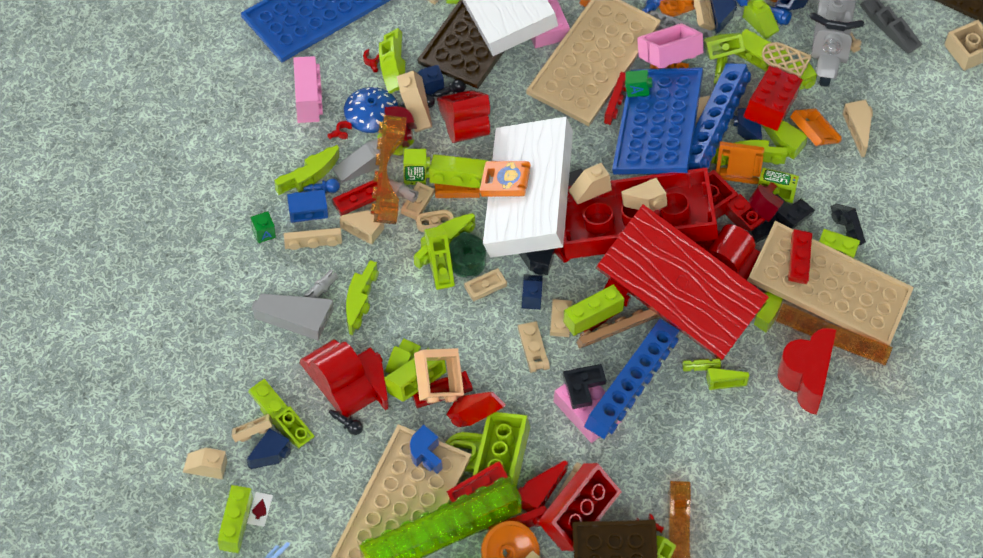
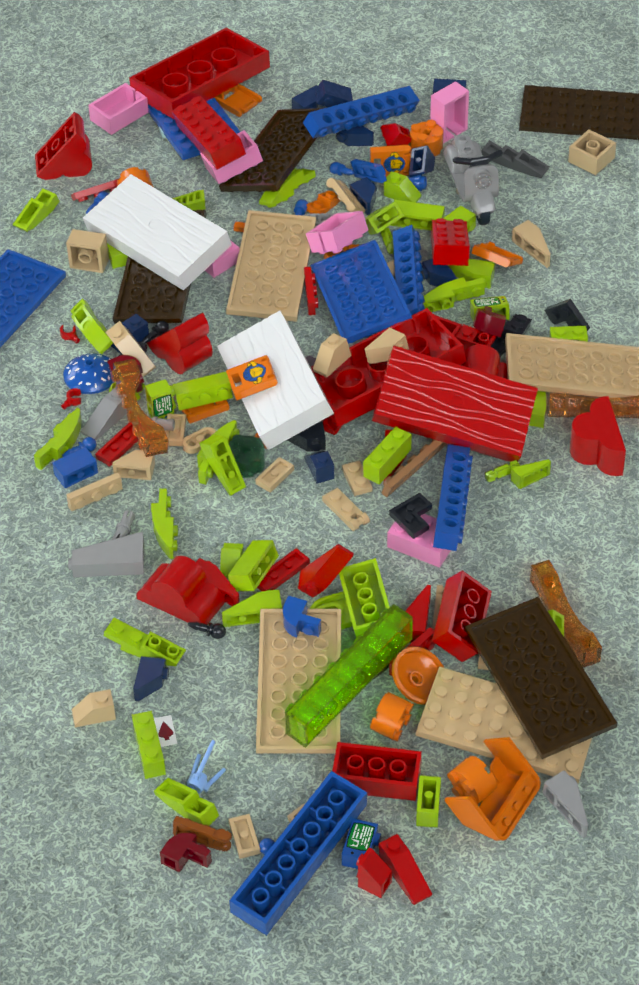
camera: 20 degrees left, 10 degrees down
(253, 427) = (129, 659): tan plate -> none
(263, 227) = (42, 498): green brick -> none
(307, 89) = (24, 373): bright pink piece -> none
(388, 418) = (249, 609): none -> lime slope
(453, 370) = (288, 548): light nougat window -> none
(484, 478) = (370, 614): red plate -> none
(638, 83) = (326, 269): green brick -> none
(742, 163) = (450, 300): orange container -> none
(795, 51) = (441, 202): tan window -> none
(800, 256) = (543, 352): red plate -> none

